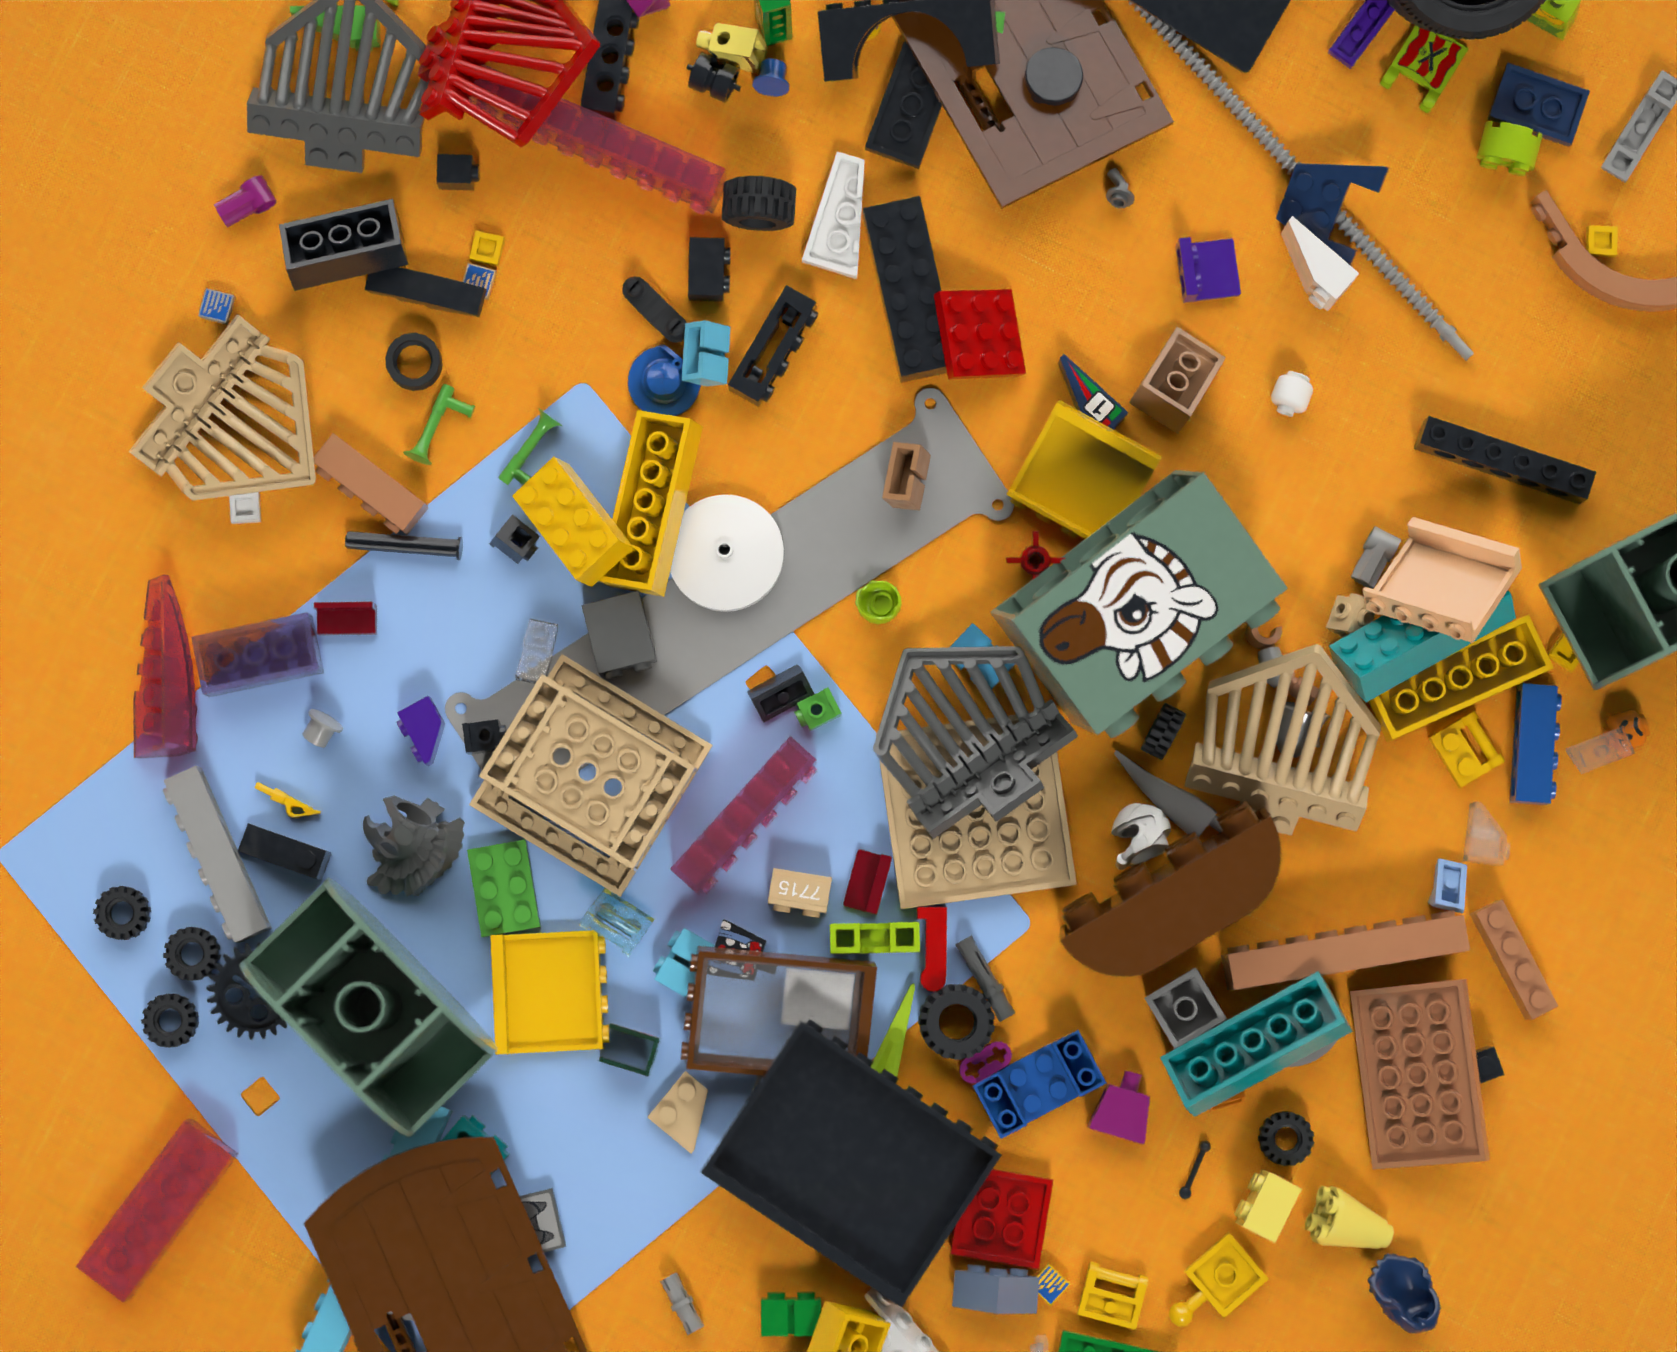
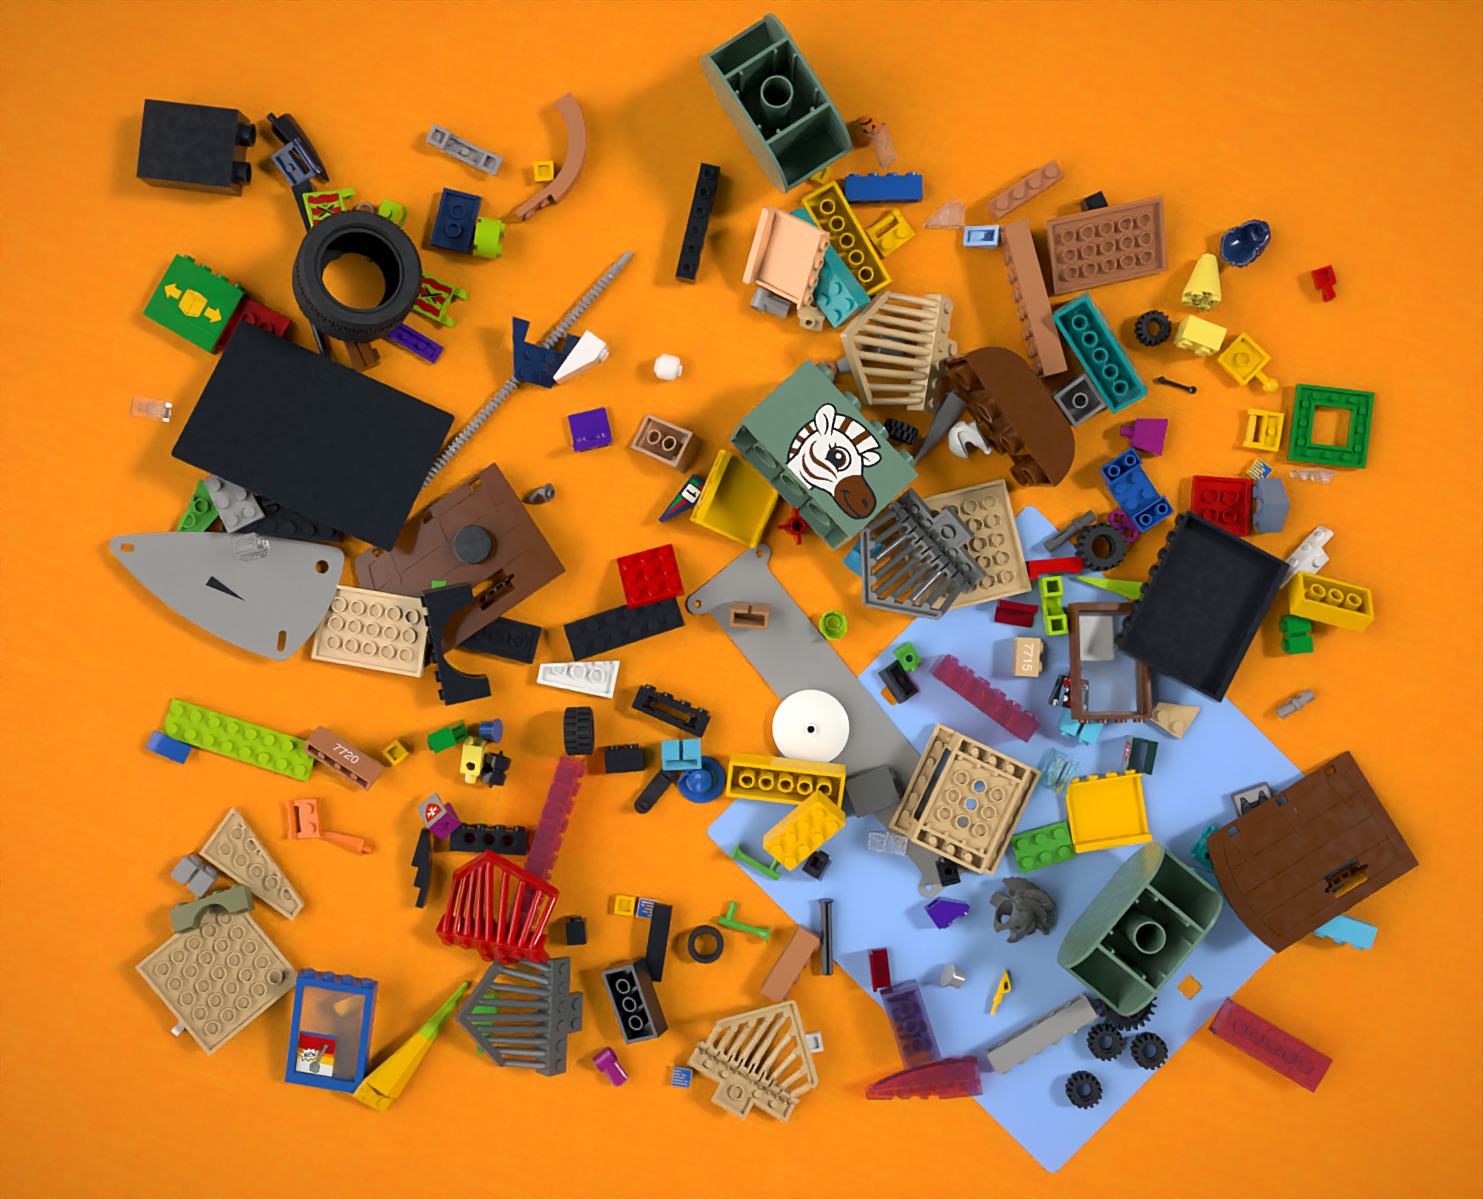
camera: 95 degrees left, 5 degrees up
(284, 851) = (1034, 989): black slope -> none

